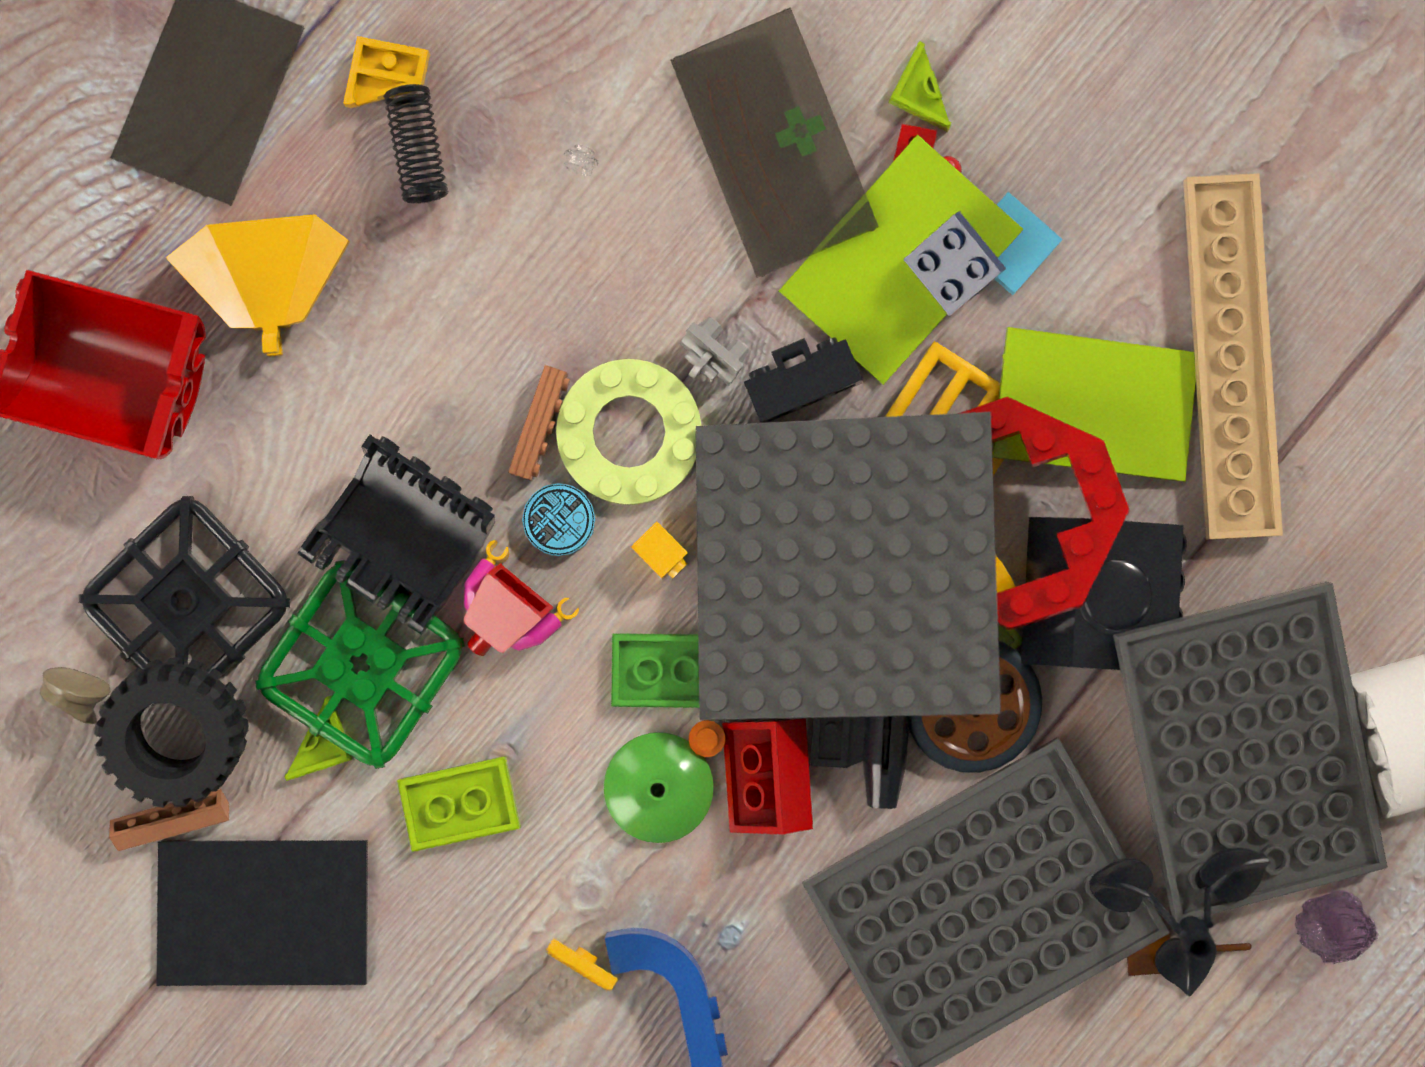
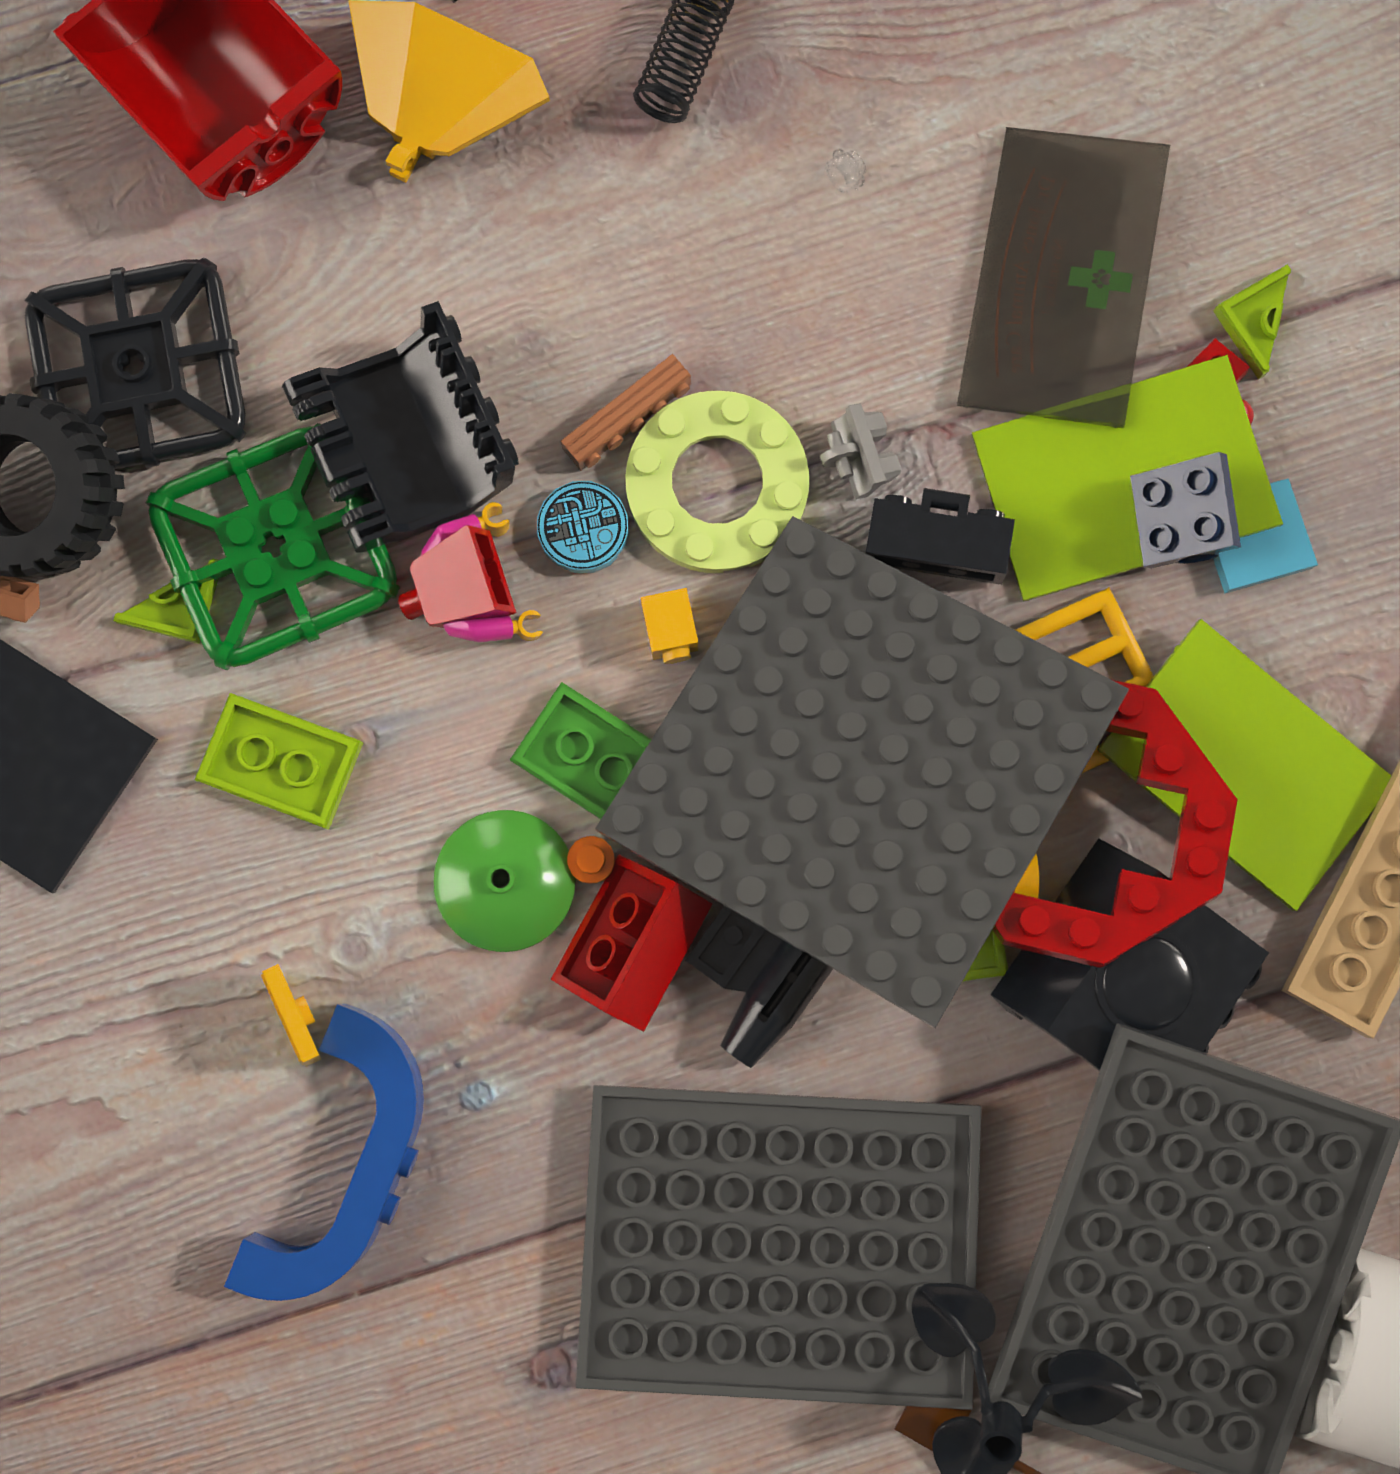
camera: 30 degrees right, 5 degrees down
(1001, 744) = (912, 1073): wedge -> none

